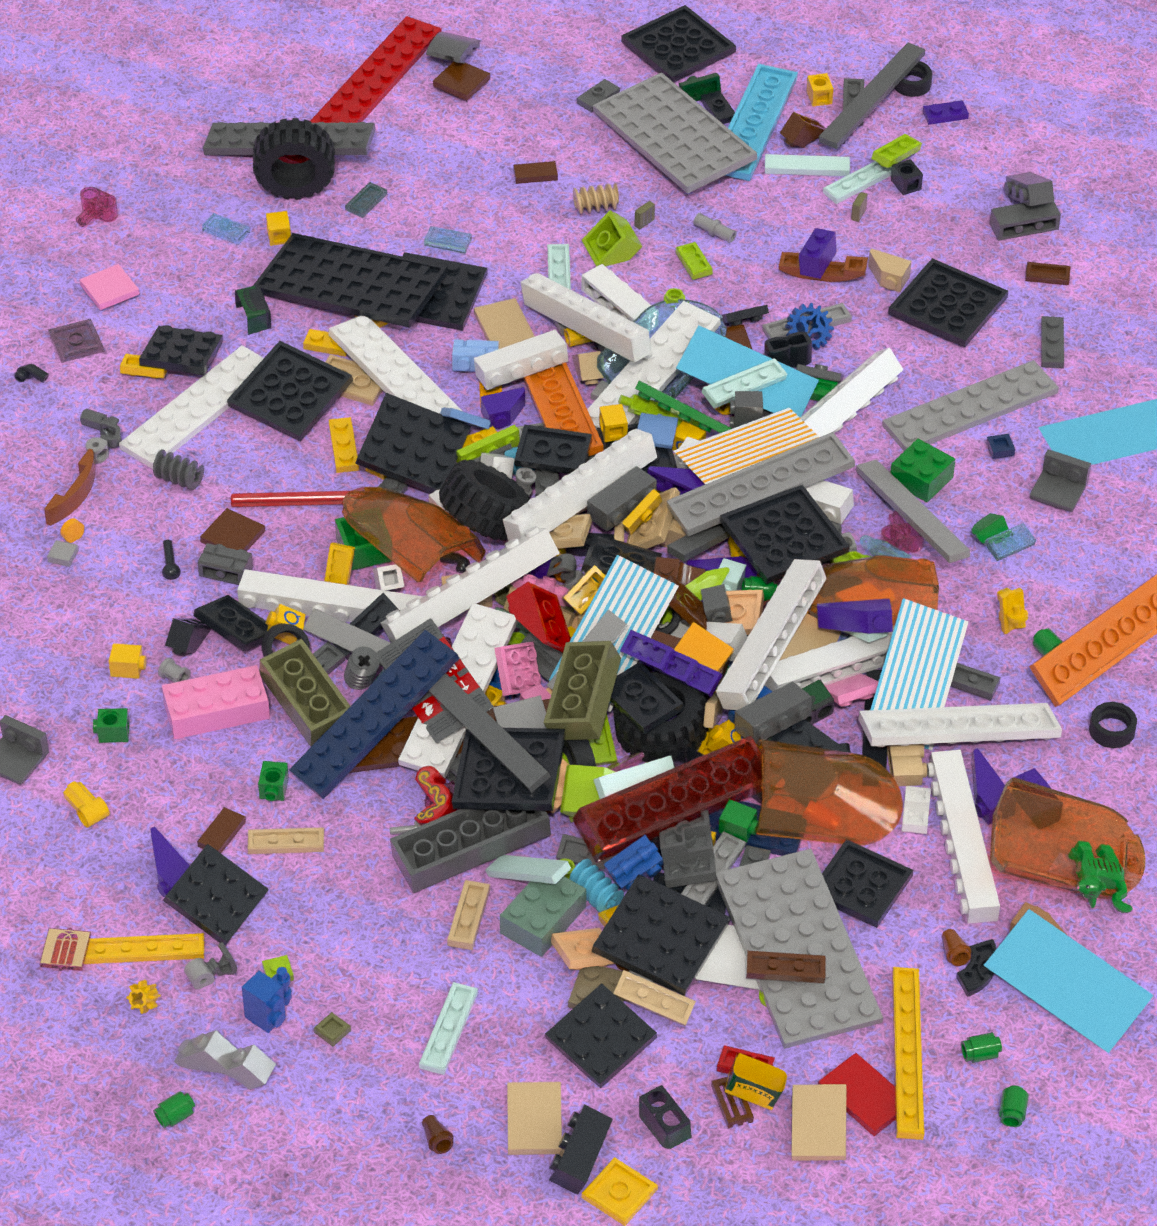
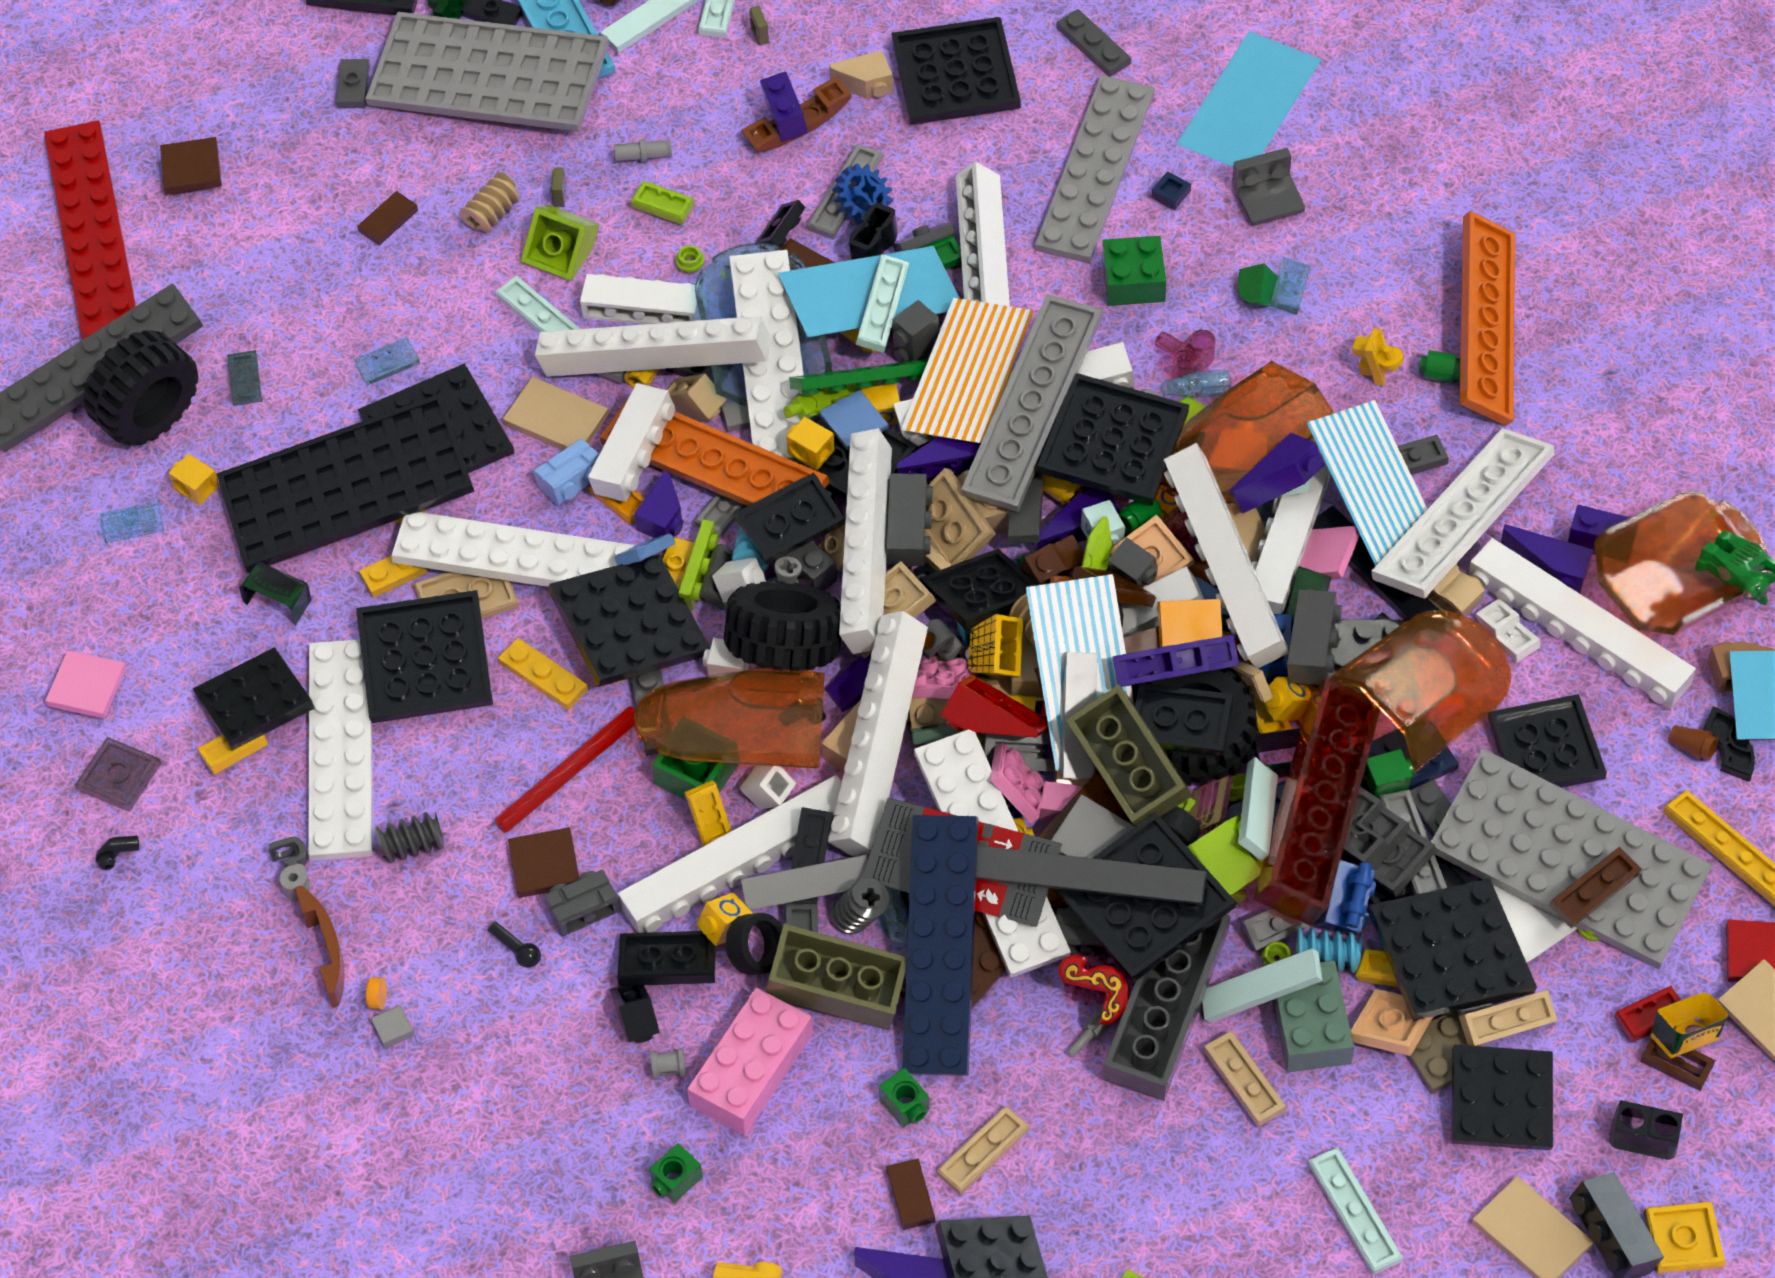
camera: 40 degrees left, 10 degrees up
(93, 418) = (255, 846): dark grey bar -> none
(126, 661) = (606, 1091): yellow brick -> none
(452, 47) = (140, 134): dark grey slope -> none
(642, 512) = (941, 518): yellow plate -> none
(913, 511) = (1190, 322): light grey tile -> none
(1115, 711) = (1584, 387): black tyre -> none

